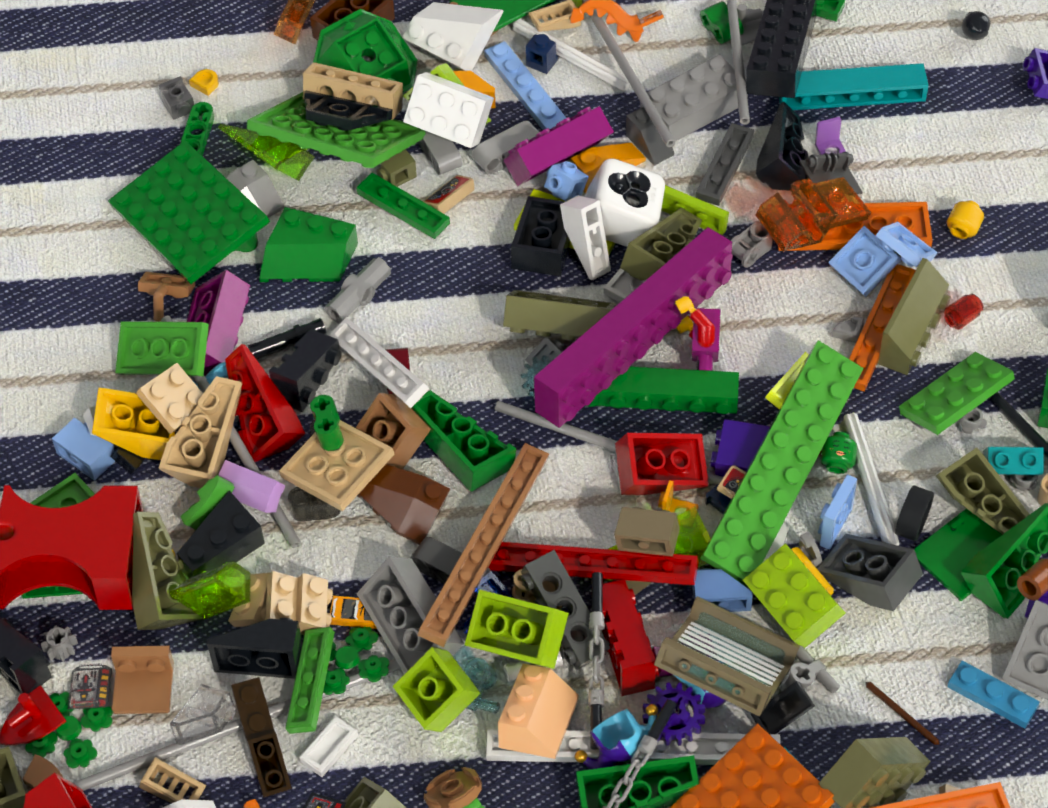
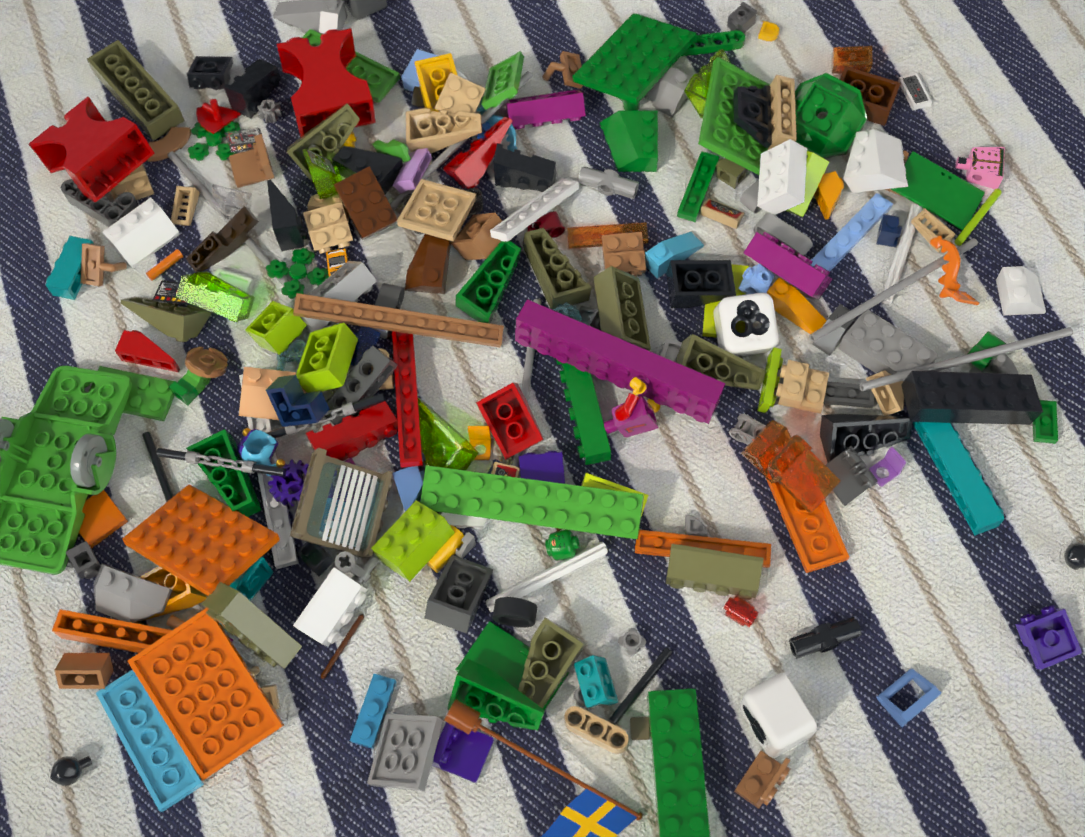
camera: 75 degrees right, 10 degrees up
(285, 339) = (547, 151): black pin -> none
(286, 543) = (365, 203): none -> reddish brown brick
(310, 680) = (271, 254): bright green tile -> none
(326, 422) = (460, 189): green axle -> none
(355, 756) = (215, 296): none -> clear neon green wedge
(434, 310) = (591, 235): none -> clear orange plate
(470, 372) = (553, 271): none -> olive wedge
(473, 299) = (624, 252): none -> medium nougat plate
(487, 256) = (675, 248): none -> medium azure slope
(577, 673) = (294, 405): none -> dark blue brick
(586, 232) = (702, 307): white slope -> none
(647, 531) = (429, 419): dark tan brick -> none
(715, 180) = (802, 387): none -> tan plate
(758, 112) = (889, 396): none -> tan slope
(836, 513) = (498, 554): light blue plate -> none
(858, 699) = (331, 607): none -> white slope
(864, 261) = (763, 521): light blue plate -> none
(905, 243) = (784, 546): light blue plate -> none
(956, 393) = (652, 623): bright green plate -> none
(965, 219) = (843, 593): yellow head -> none
(1010, 249) = (825, 637): none -> black piece

